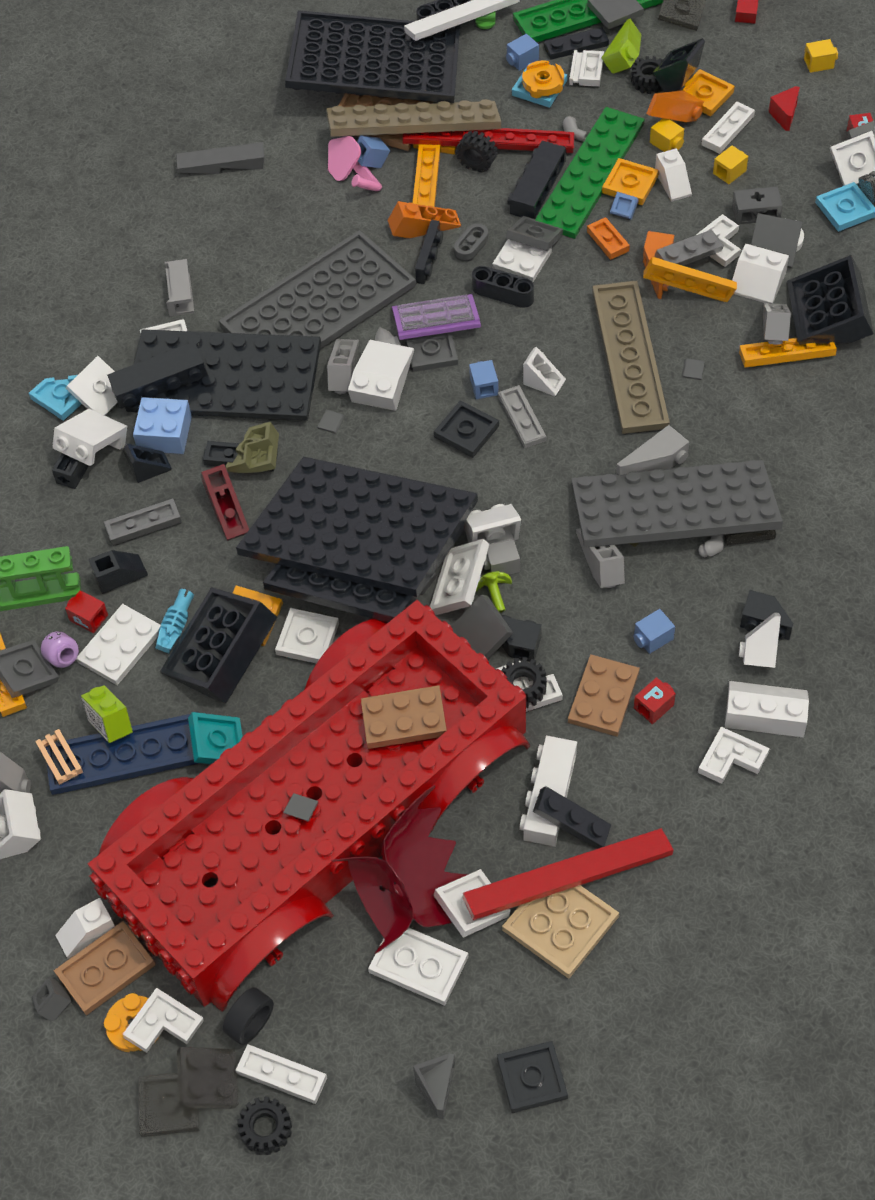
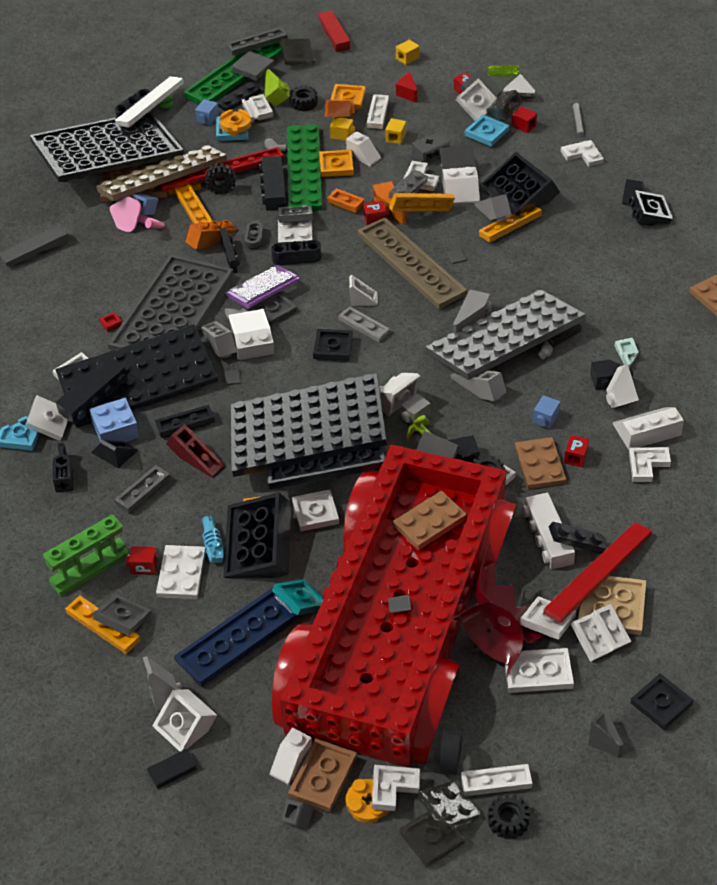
camera: 30 degrees left, 10 degrees down
(50, 741) = (194, 653): light nougat tile -> none
(59, 649) = (142, 590): lavender head -> none
(87, 434) = (66, 448): white panel -> none
(106, 713) = (209, 613): lime brick -> none
(116, 569) = (145, 525): black slope -> none
(179, 288) = (62, 334): light grey window -> none
(243, 291) = (110, 321): none -> red tile
(257, 450) = (197, 410): olive slope -> none
(459, 577) = (400, 426): white plate -> none
(483, 379) = (324, 311): medium blue brick -> none
(518, 953) = (600, 632): none -> white slope
(624, 205) = (342, 178): medium blue tile -> none
(629, 268) = (374, 211): none -> red brick
(679, 66) = (323, 83): black slope -> none
(813, 592) = (627, 350): none -> light aqua slope

